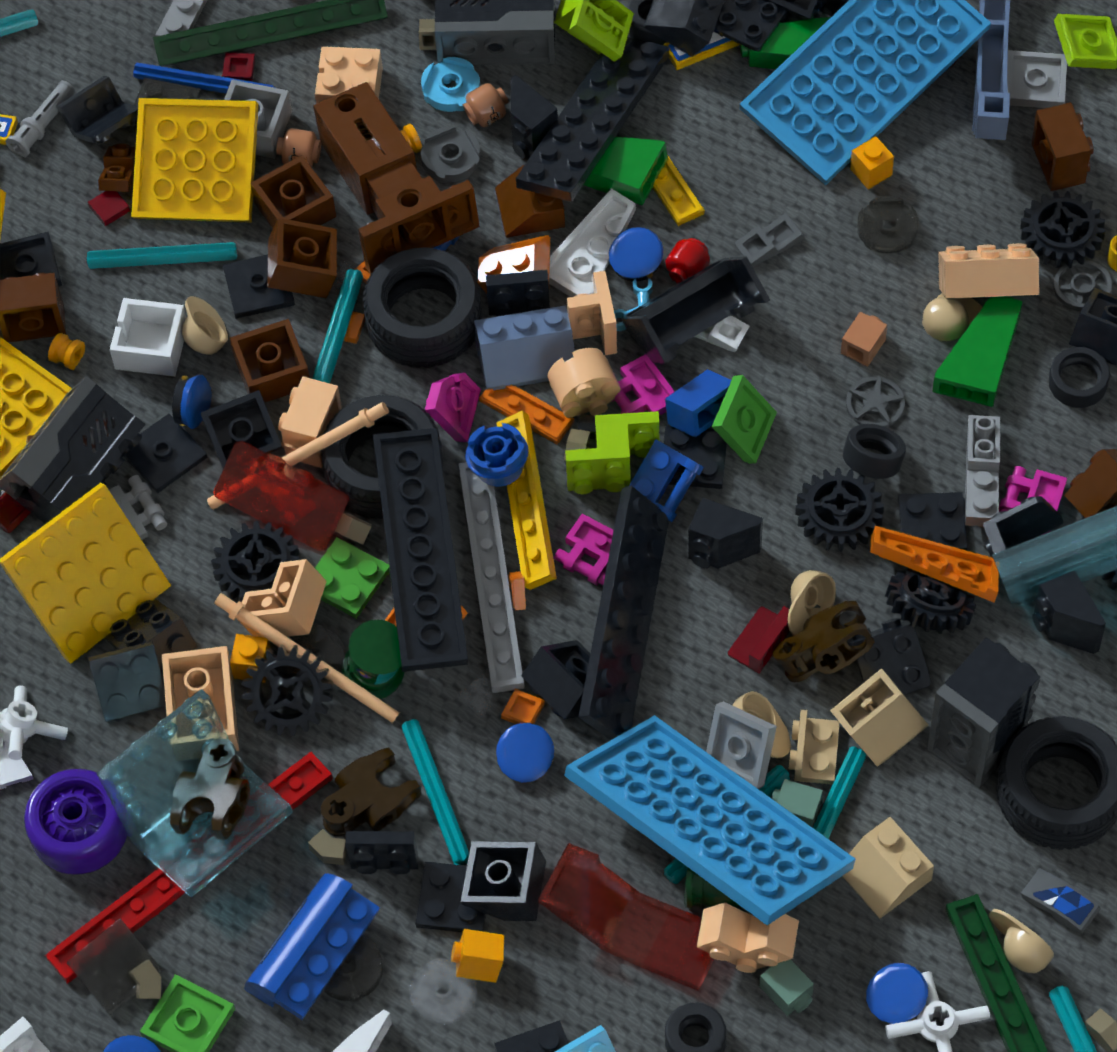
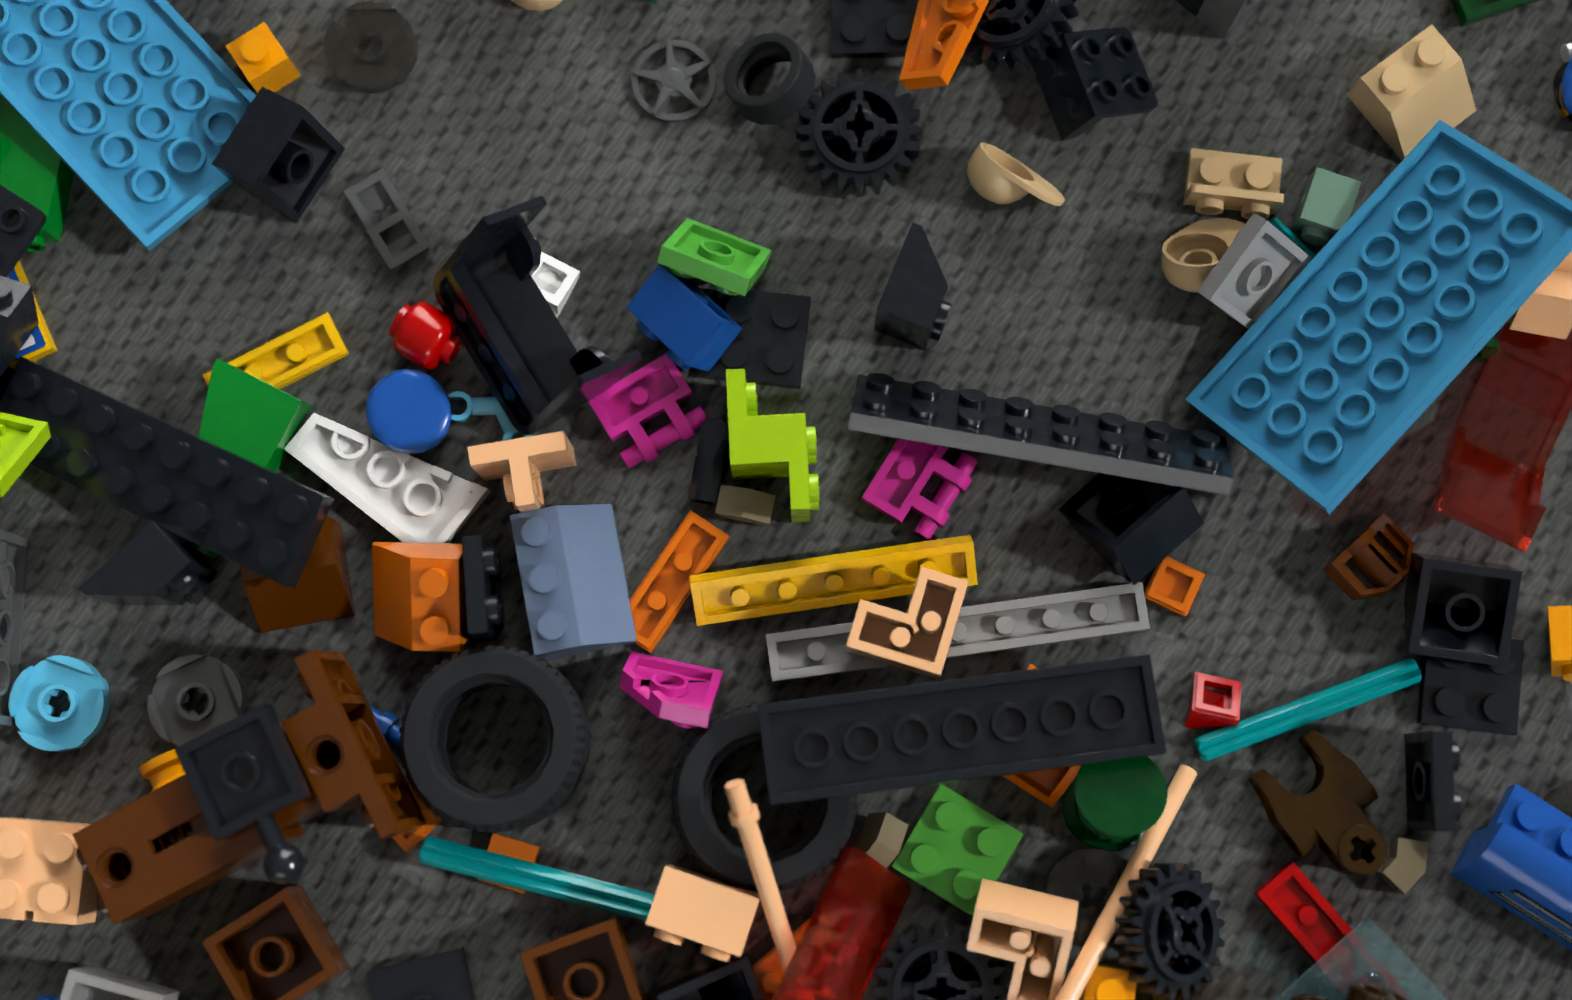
camera: 90 degrees left, 20 degrees up
(298, 143) = (169, 950): nougat head -> none
(302, 258) = (395, 936): reddish brown brick -> none
(393, 158) = (245, 777): none -> black plate
(439, 730) = (1211, 707): none -> red slope
(485, 105) = (108, 645): nougat head -> none
(486, 534) = (915, 638): none -> light nougat brick
(497, 454) = (780, 617): blue cone -> none
(517, 586) = (989, 590): orange tile -> none
(525, 752) = (1252, 579): blue piece -> none
(547, 820) = (1372, 560): none -> reddish brown piece
(583, 383) = (648, 489): light nougat brick -> none
(657, 472) = (797, 386): blue plate -> none
(760, 637) = (1060, 248): dark red panel -> none
(804, 172) = (279, 154): none -> black slope
(824, 643) = (1090, 160): dark brown piece -> none
(839, 791) = (1298, 154): teal axle -> none
(864, 338) = (572, 86): nougat brick -> none
(879, 717) = (1195, 92): tan slope -> none

